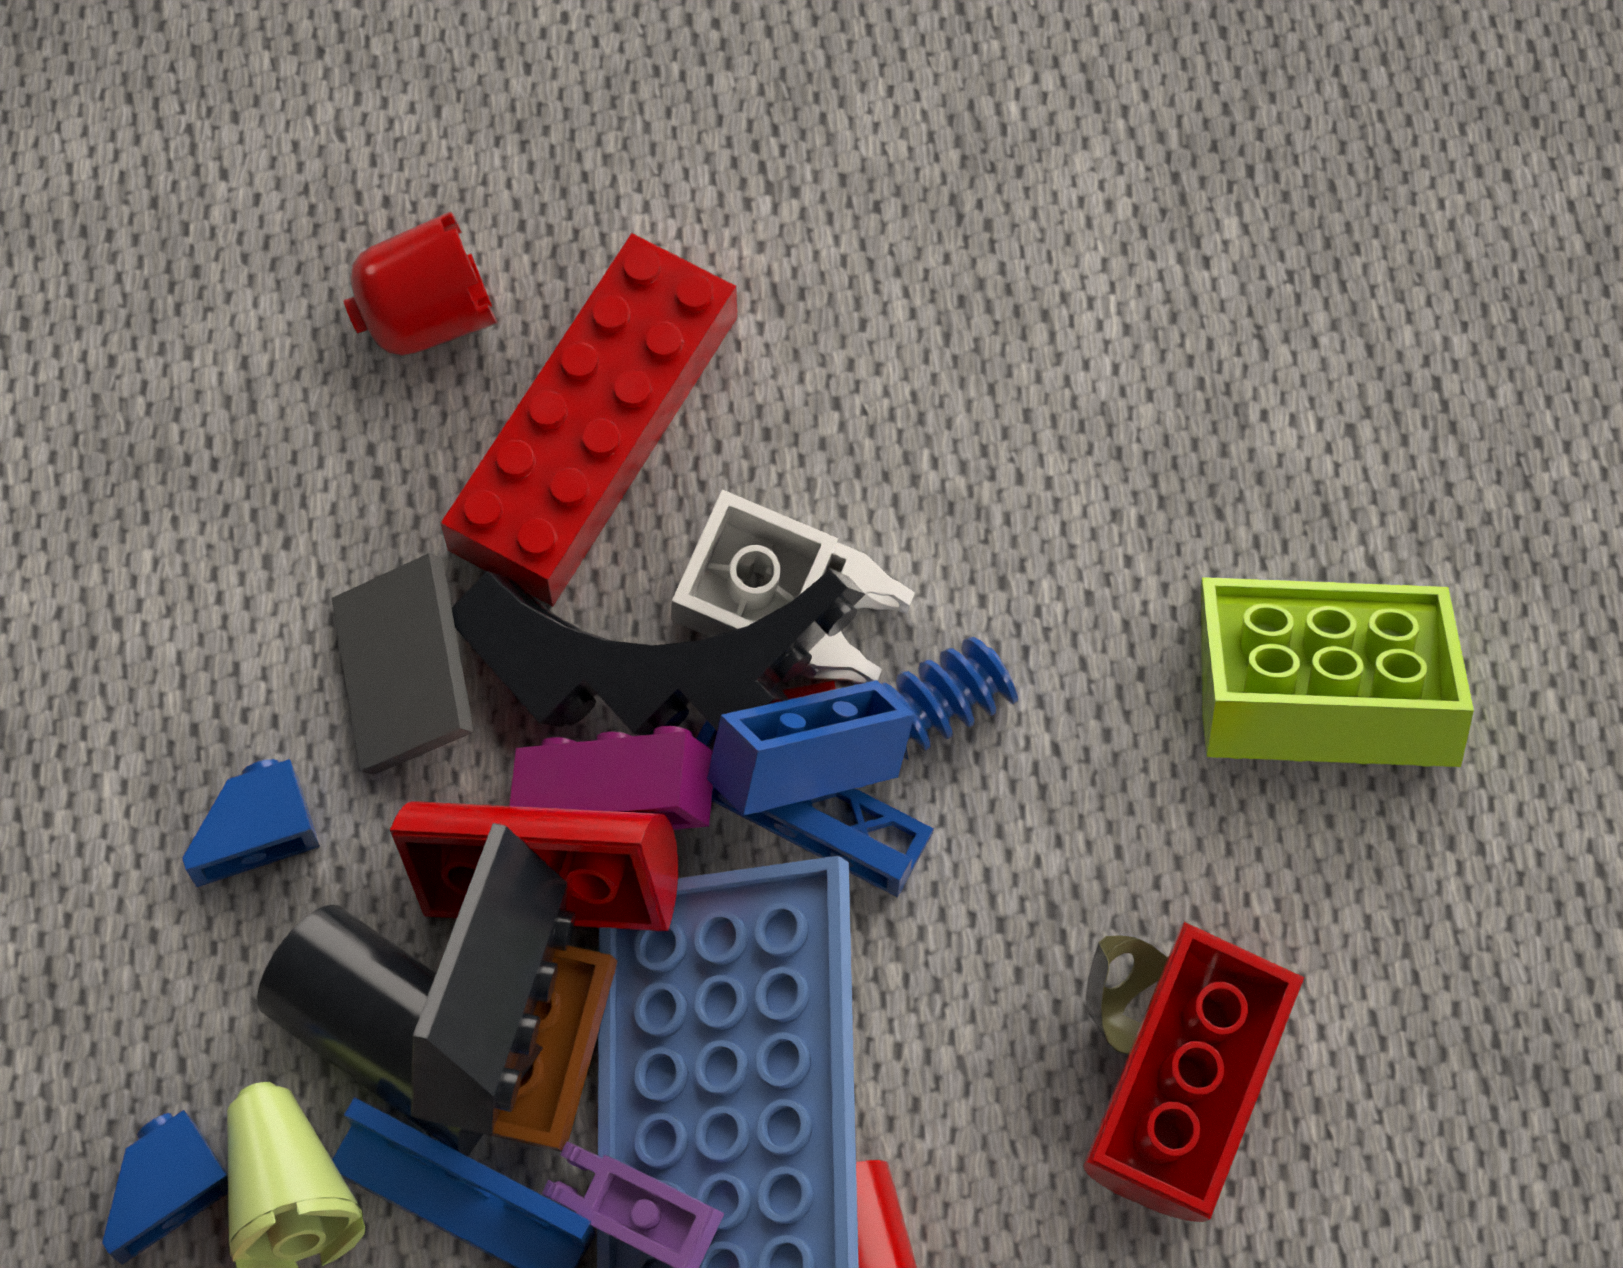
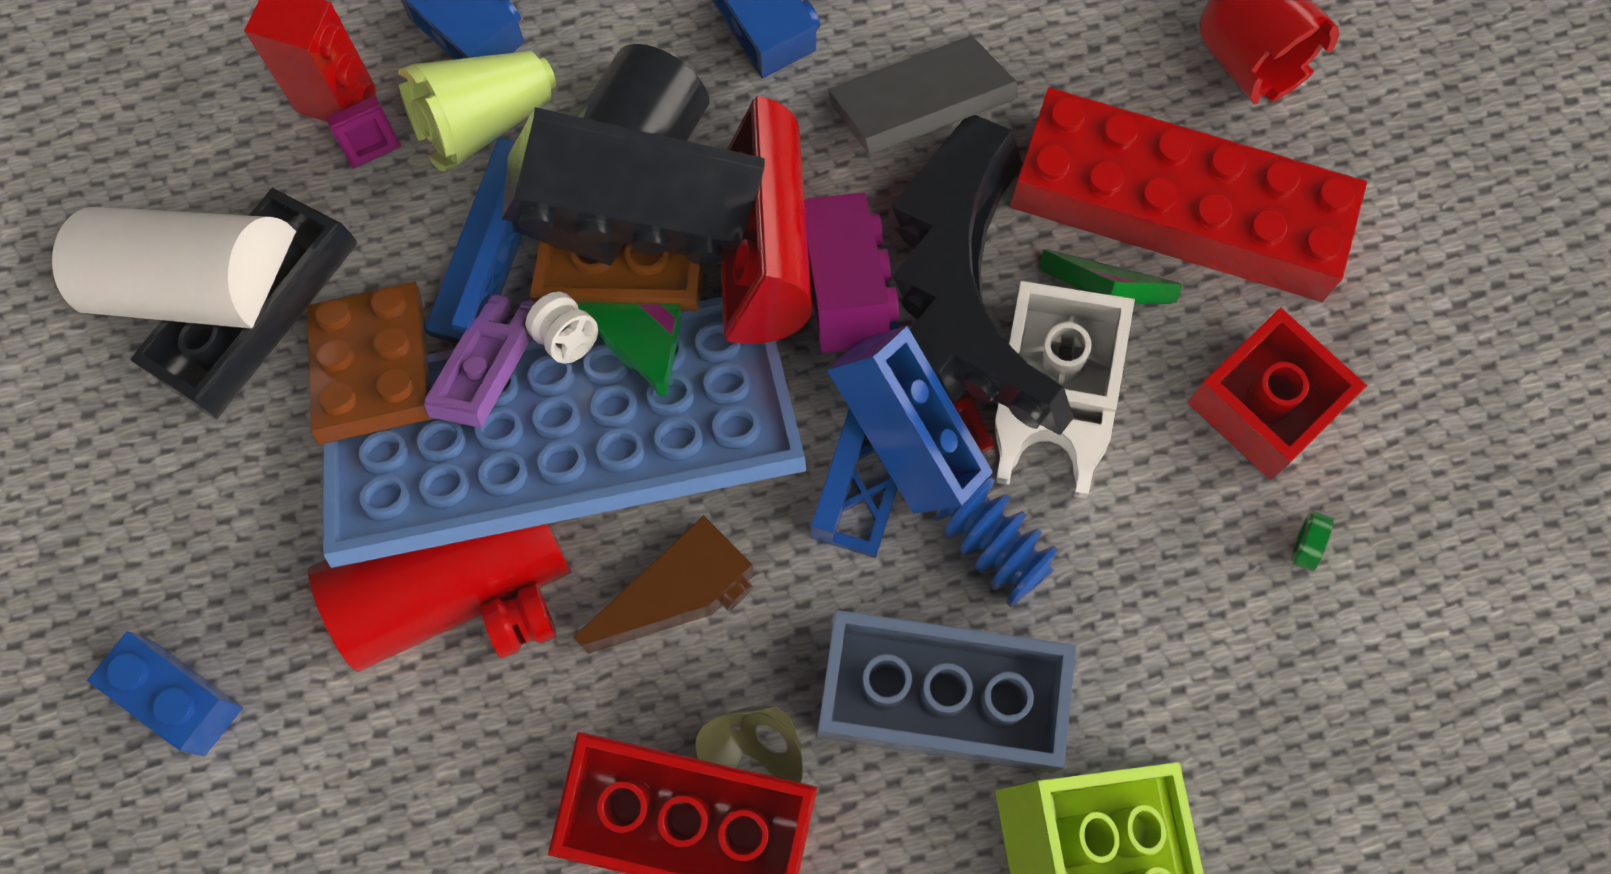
camera: 80 degrees right, 5 degrees up
(611, 1112) = (561, 327): none -> white wheel
(636, 1028) = (640, 336): none -> green tile
(672, 524) = (1109, 279): none -> green tile
(842, 384) = (1276, 393): none -> red brick
(930, 1032) = (679, 587): none -> reddish brown slope
(940, 1225) = (518, 621): none -> red wheel
(1001, 392) = (1312, 540): none -> green tile
(1100, 782) = (948, 692): none -> sand blue brick

